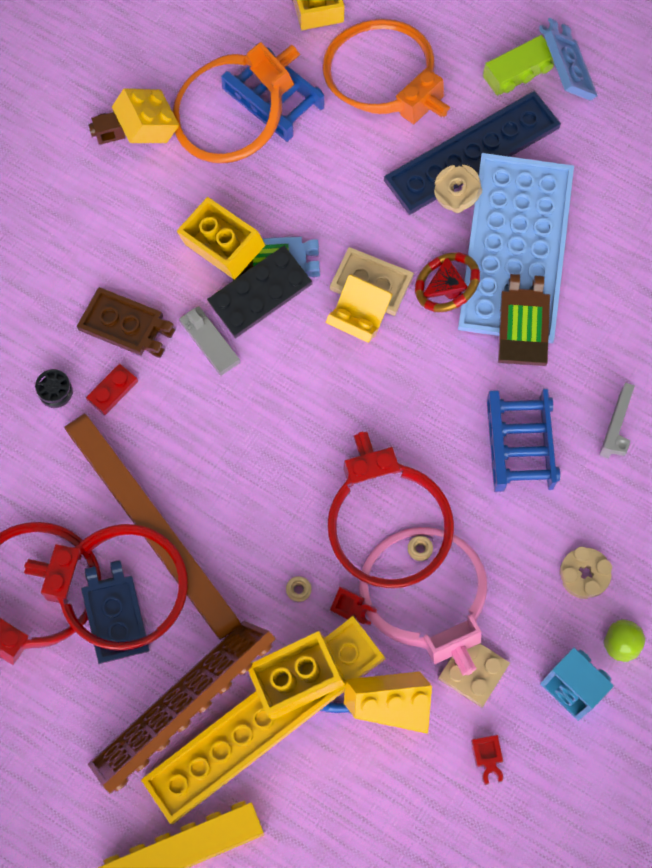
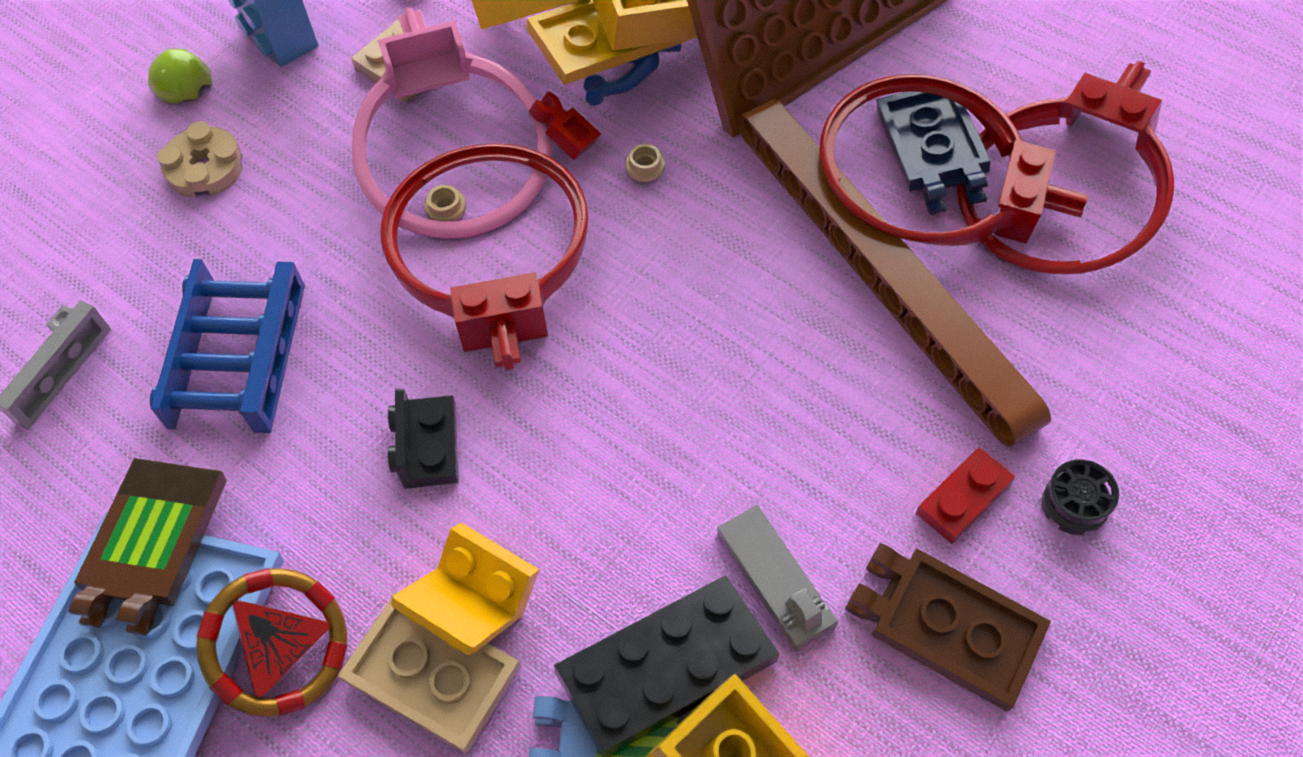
camera: 170 degrees left, 10 degrees down
(399, 396) = (424, 440): none -> black bracket

